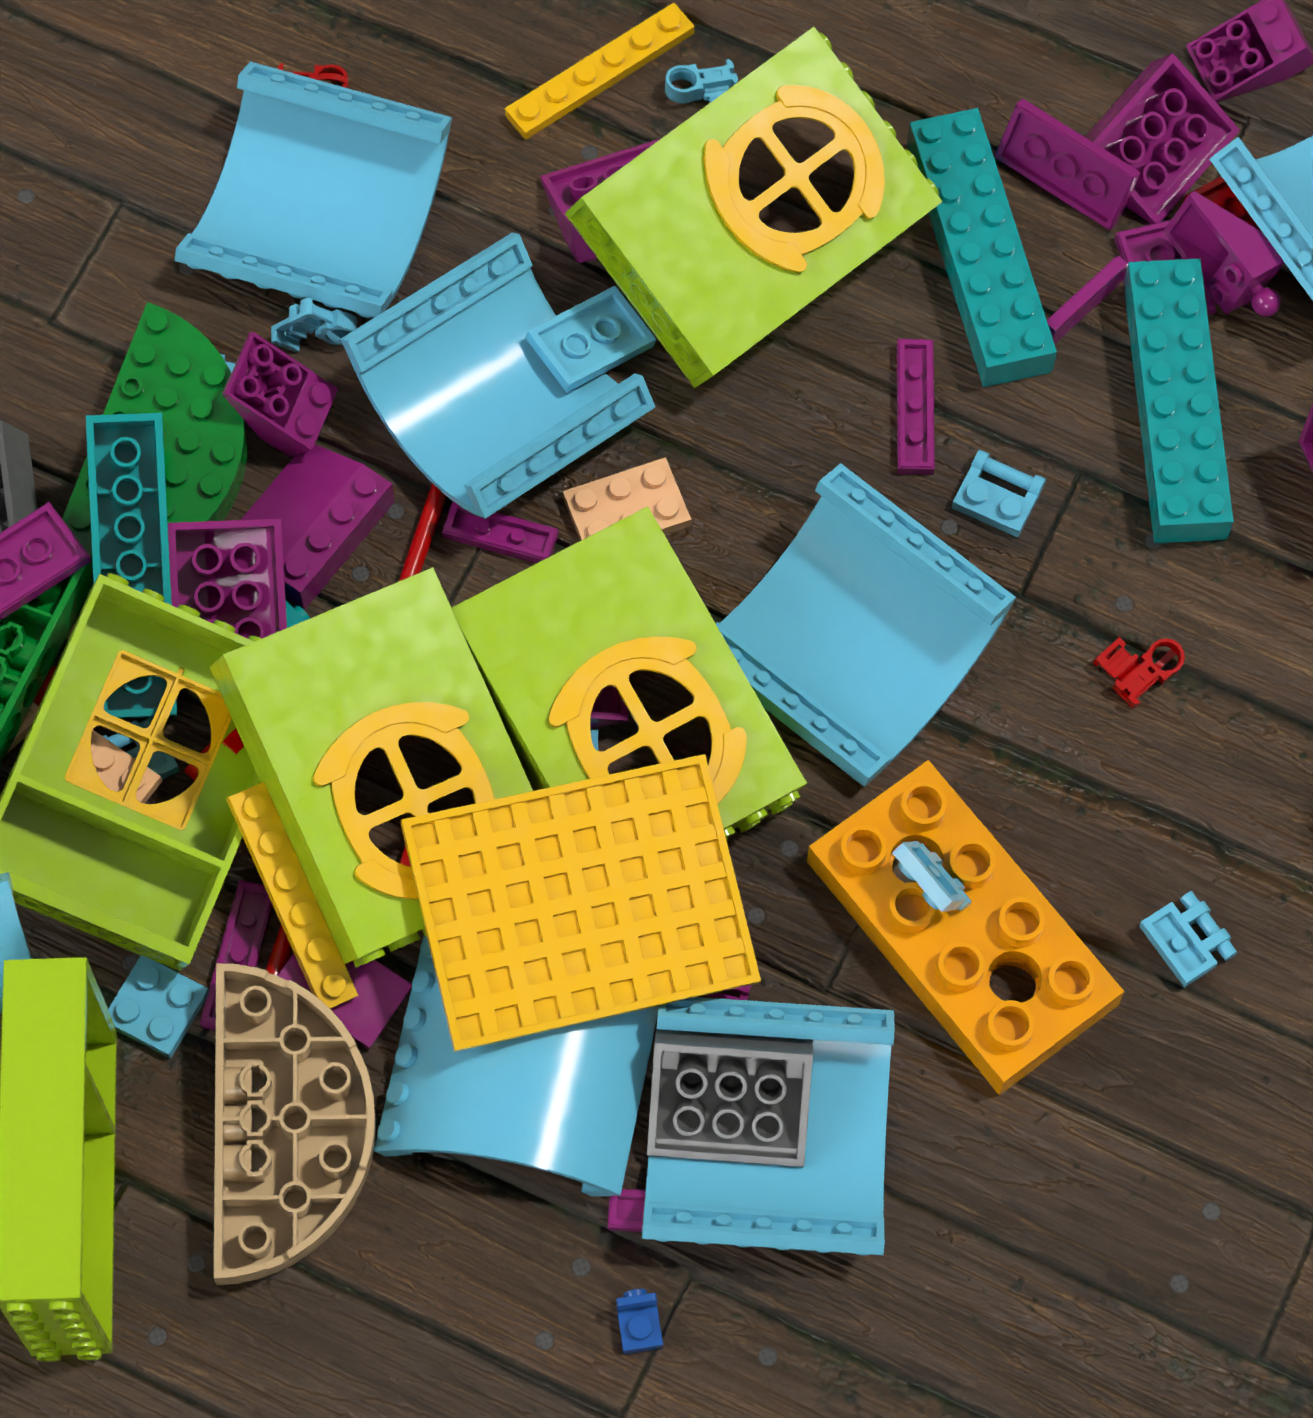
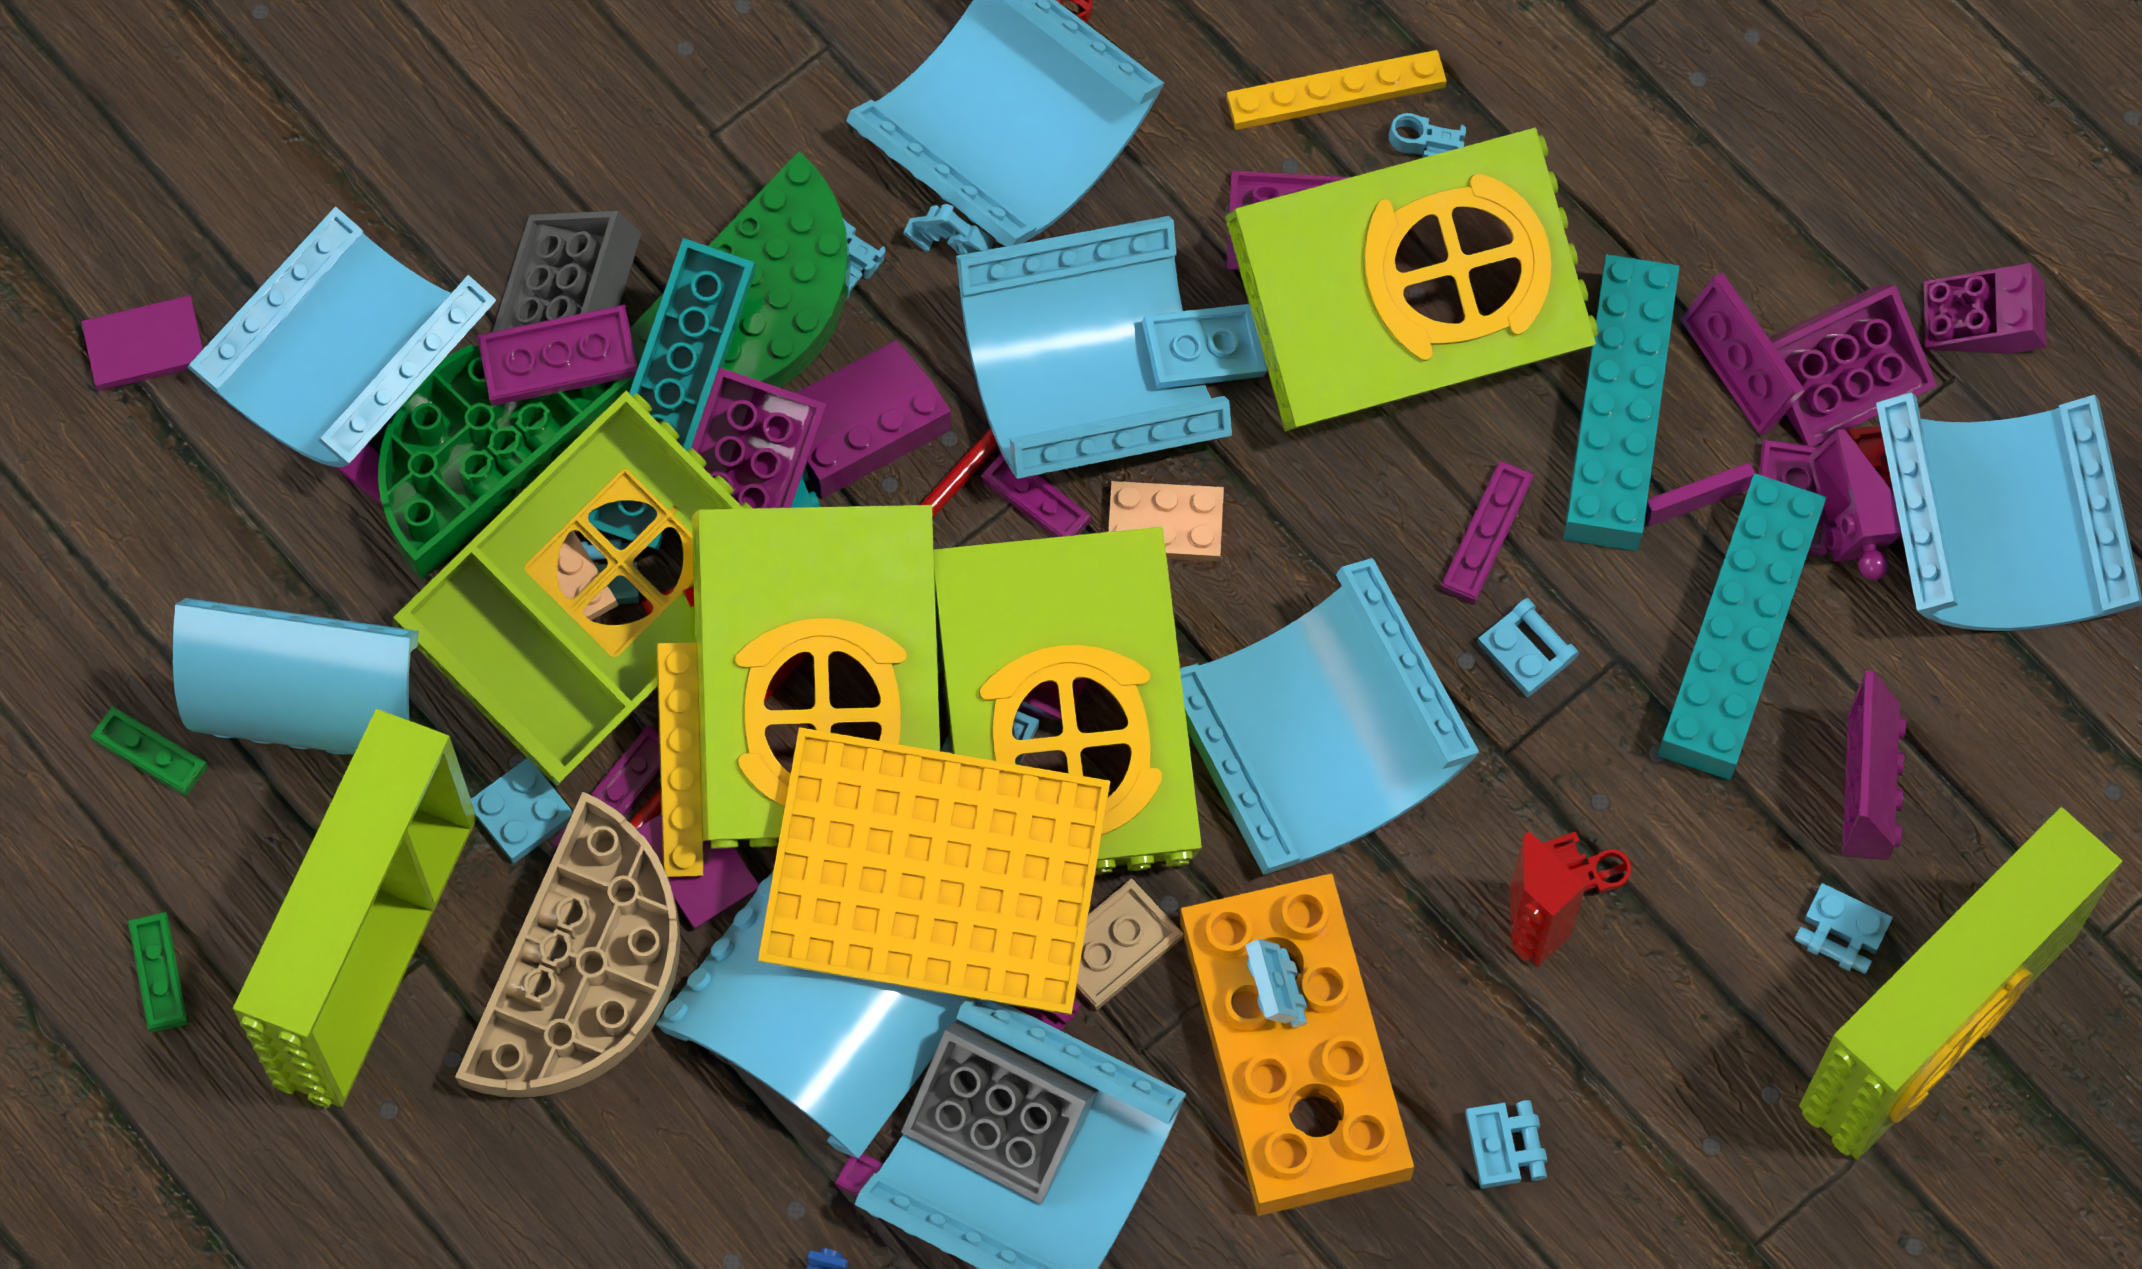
camera: 25 degrees right, 0 degrees up
(278, 396) = (881, 287): magenta slope -> none
(771, 895) = (1122, 942): none -> tan tile
(1125, 706) = (1542, 901): none -> red slope

